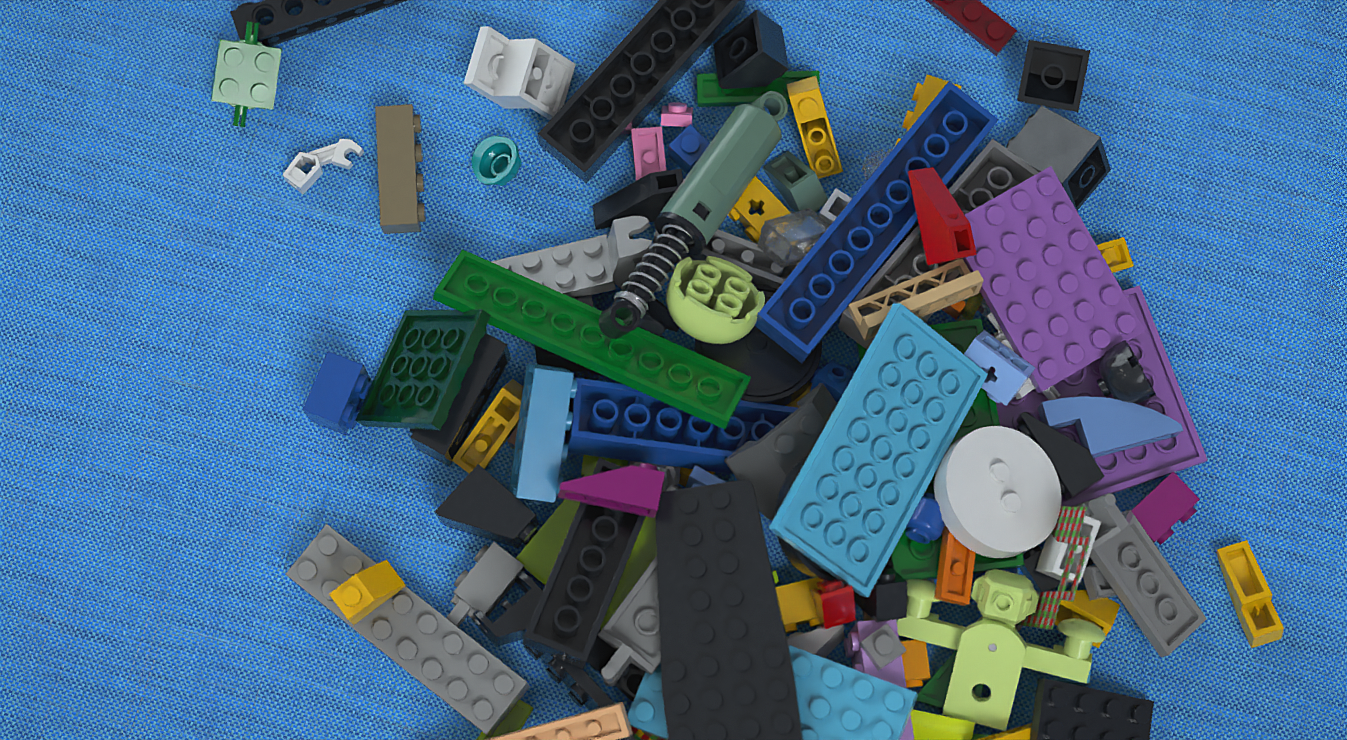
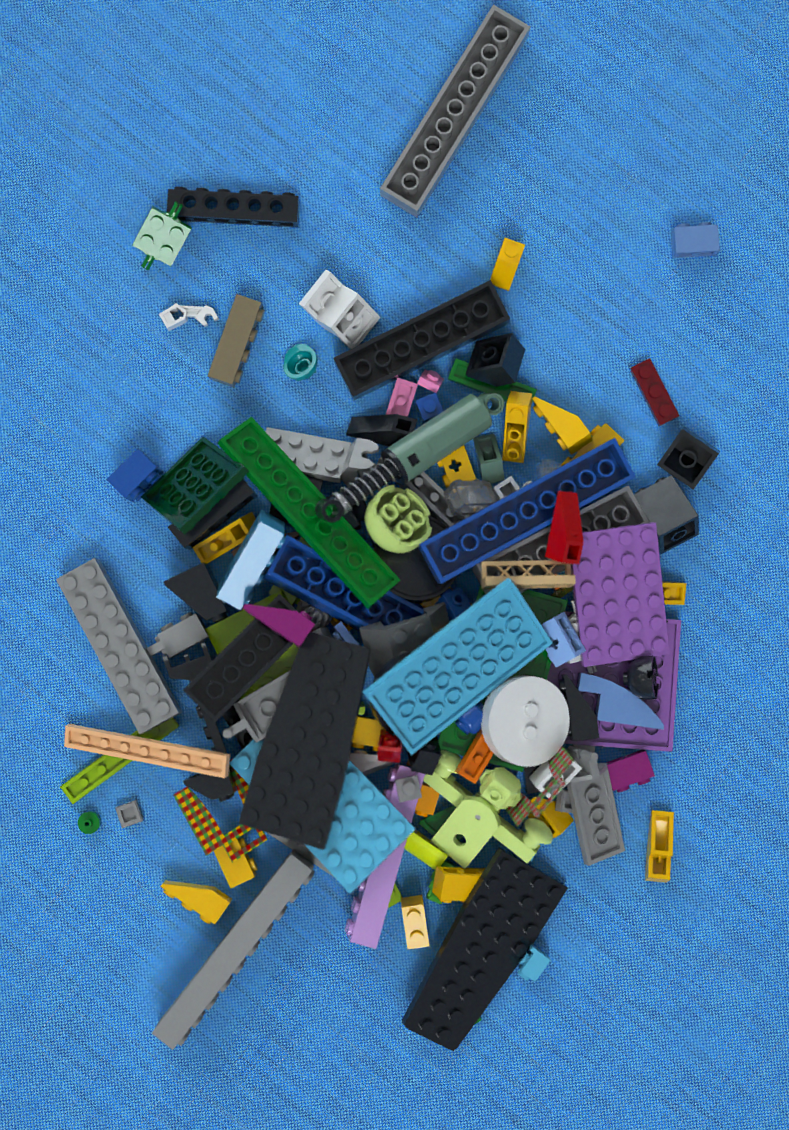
camera: 25 degrees right, 10 degrees up
(367, 591) = (100, 614): yellow slope -> none
(879, 98) = (567, 426): none -> yellow slope

